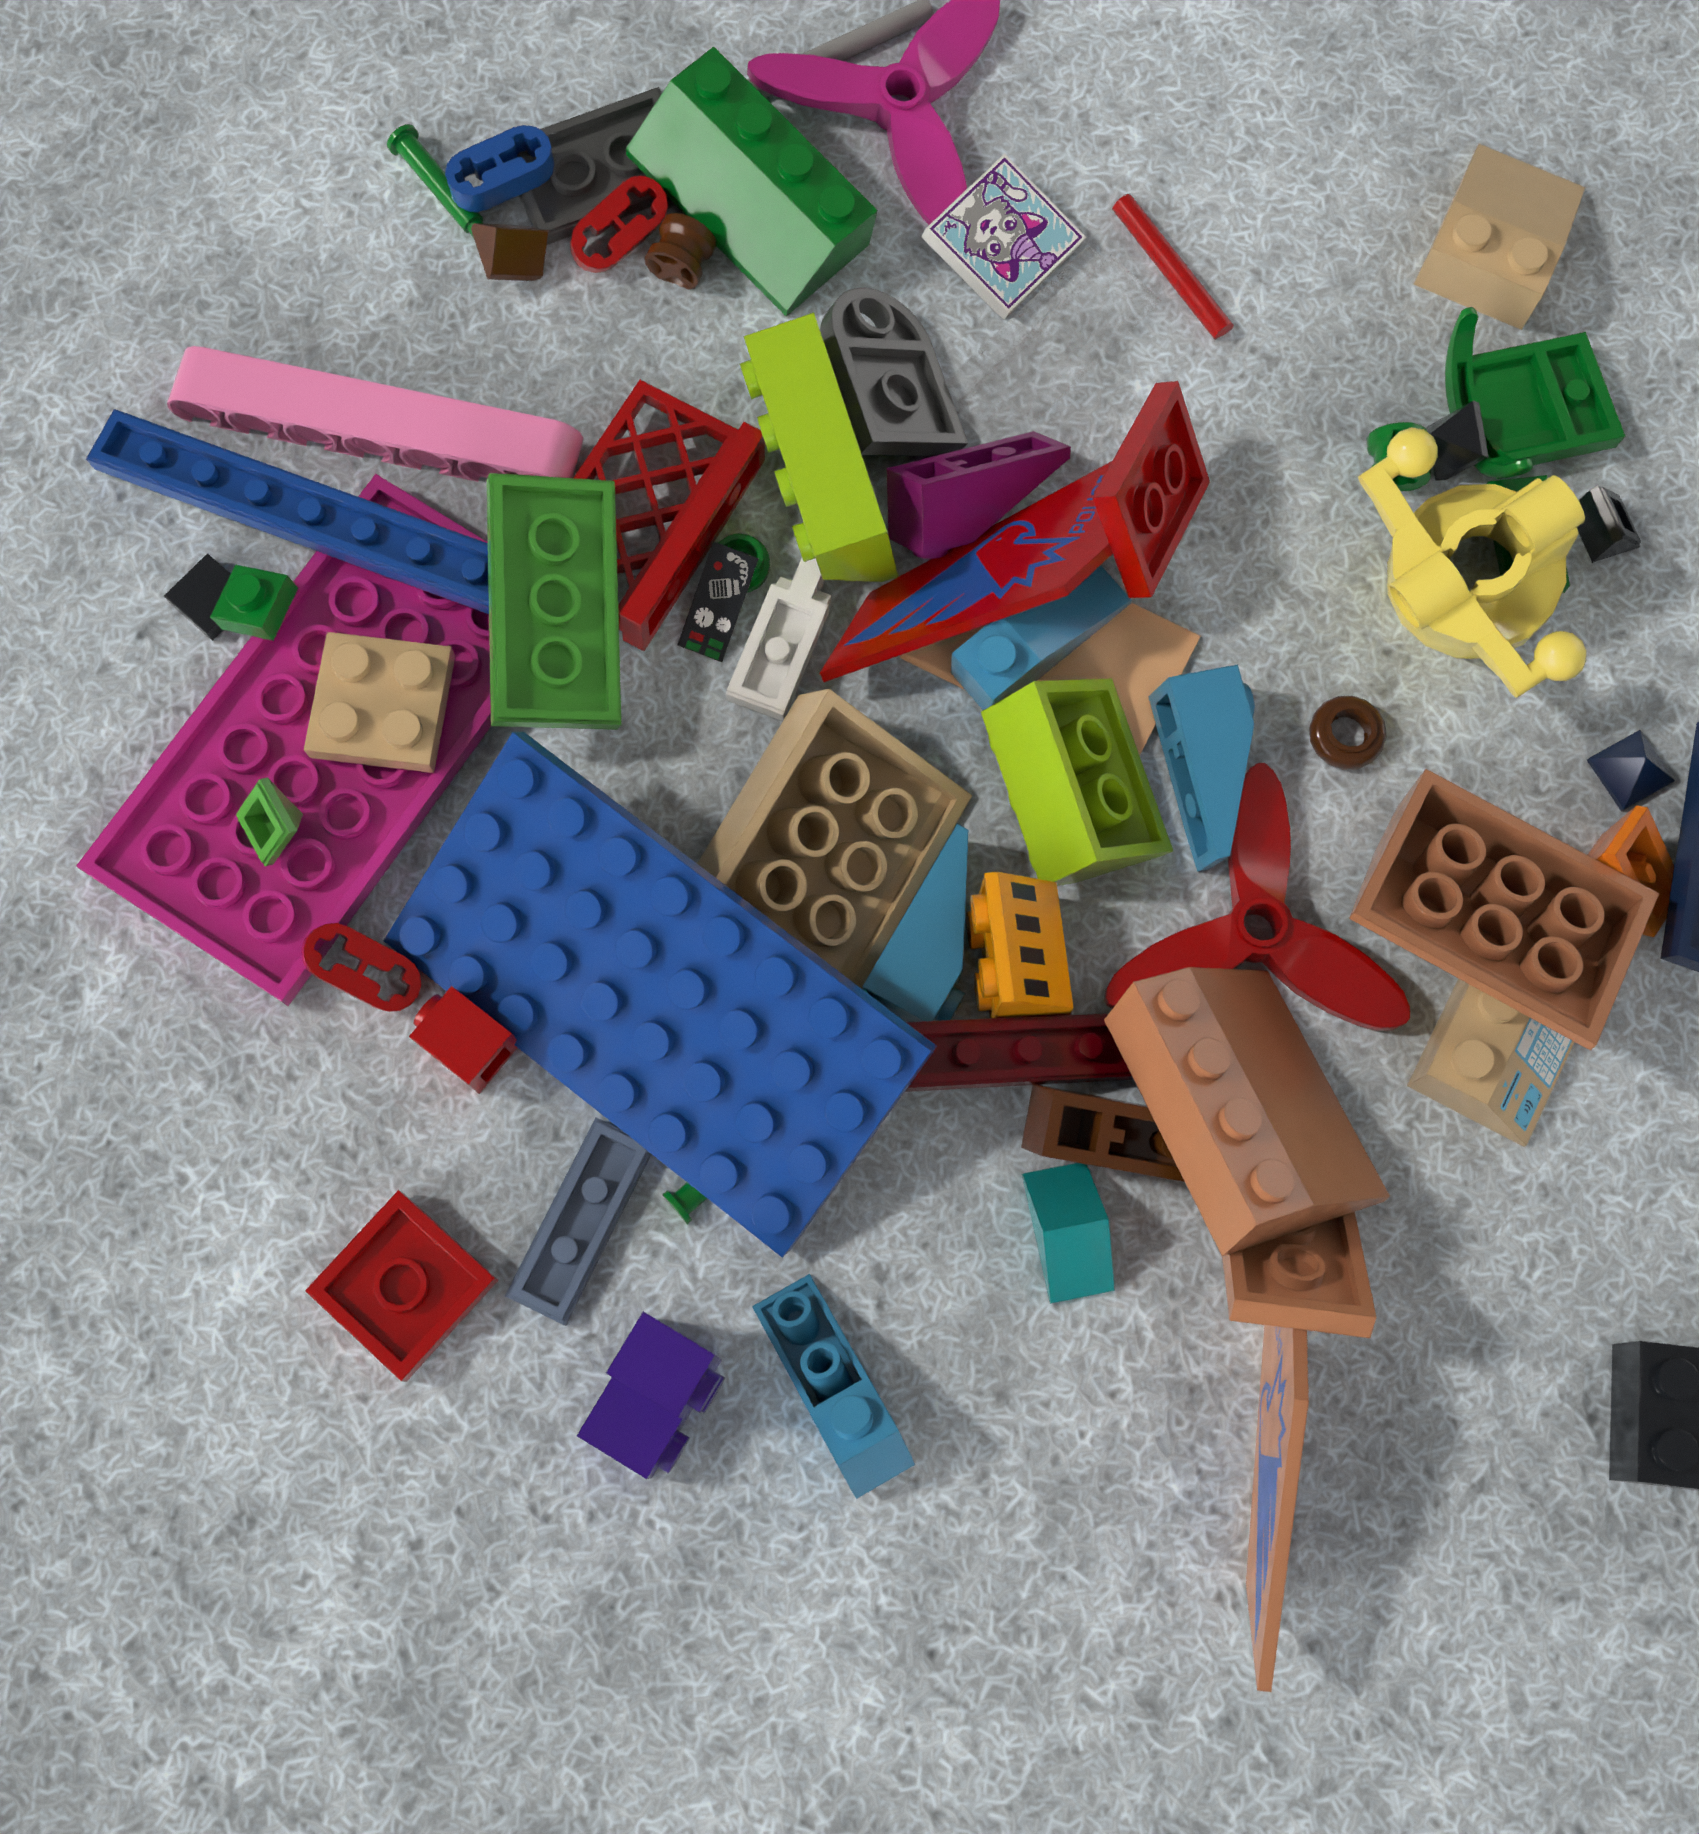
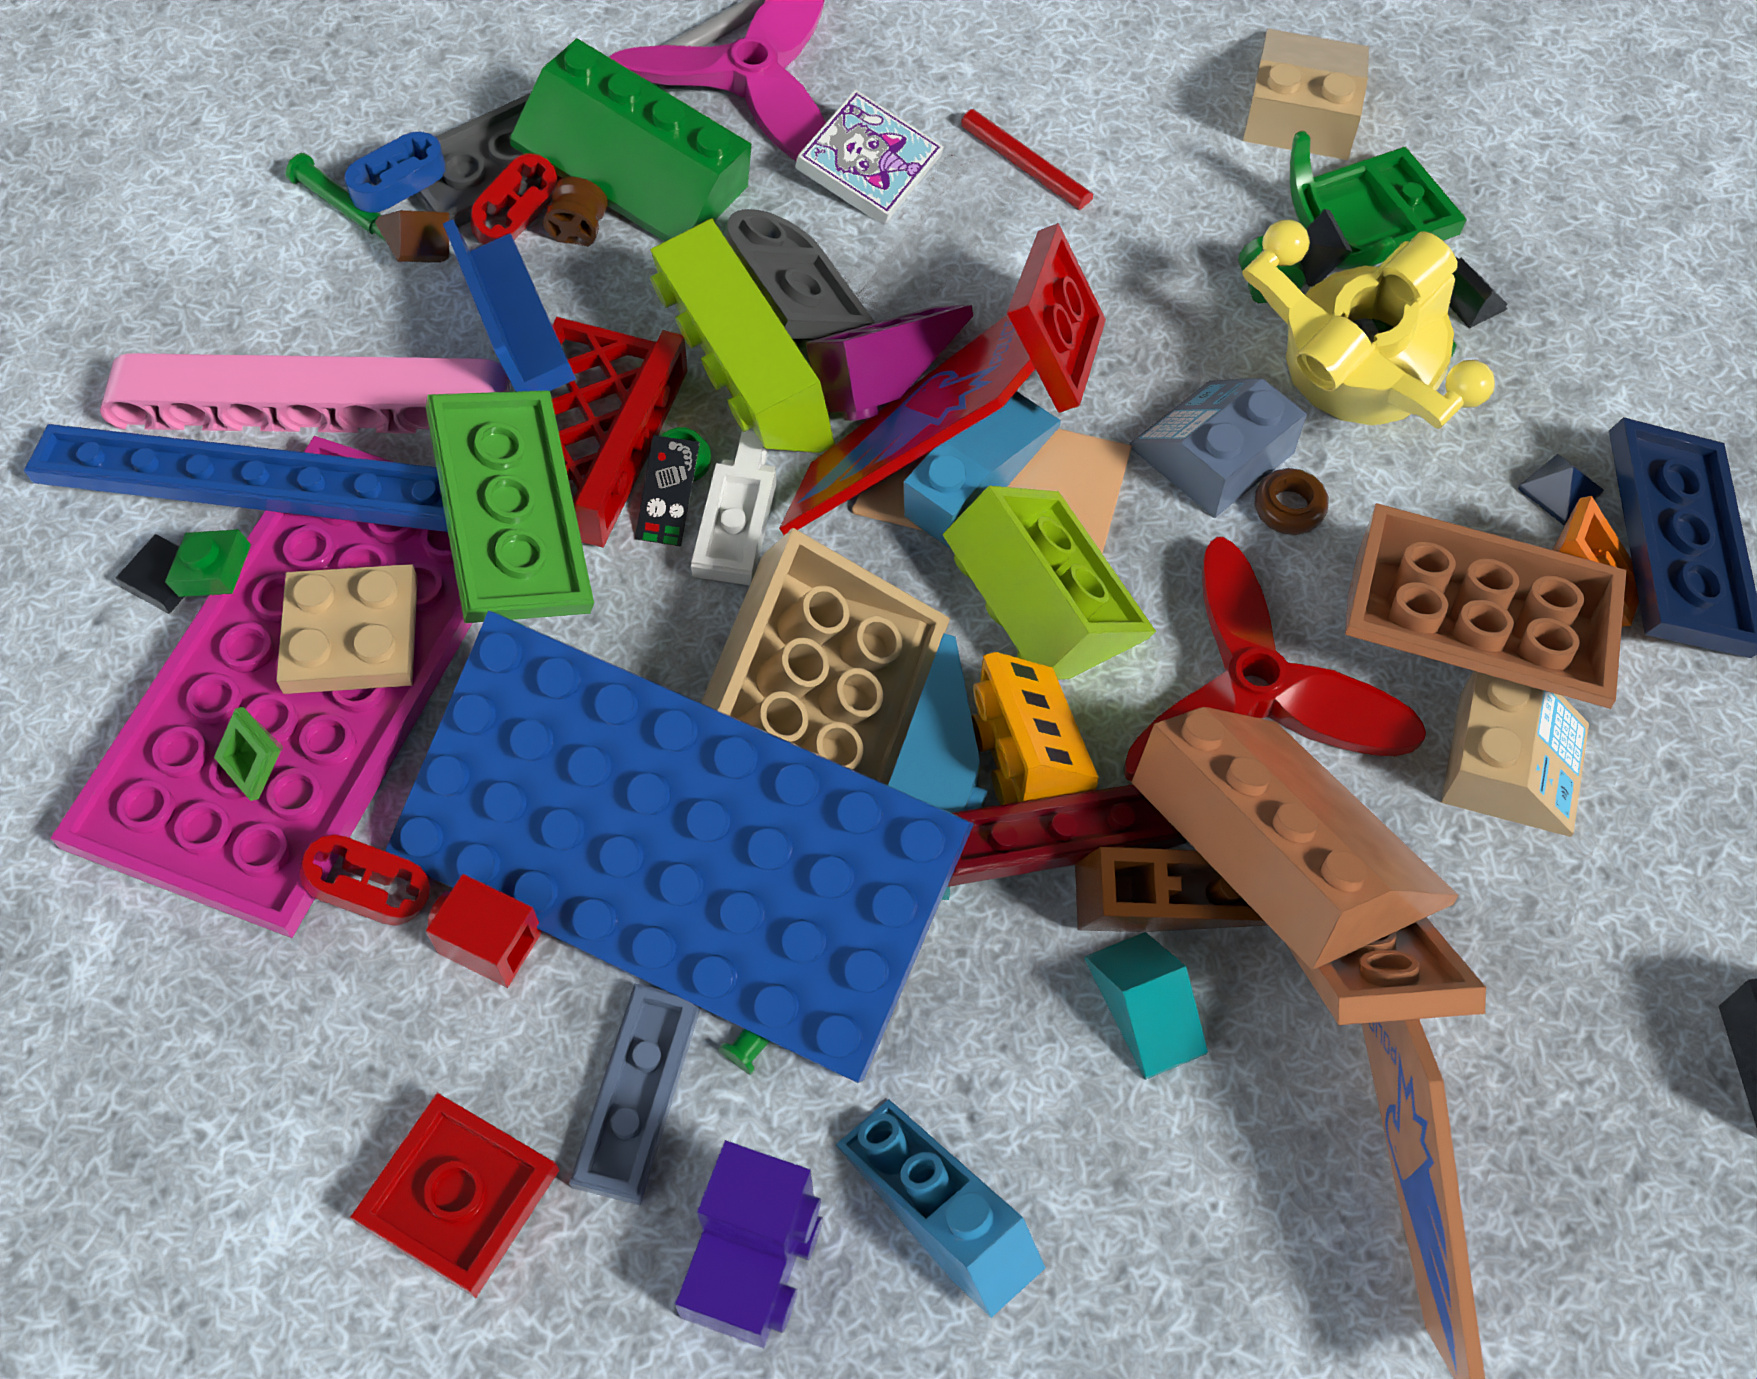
camera: 10 degrees left, 15 degrees down
(592, 368) = (512, 313): none -> blue panel
(1206, 744) = (1163, 530): dark azure slope -> none
(1294, 648) = (1223, 440): none -> sand blue slope

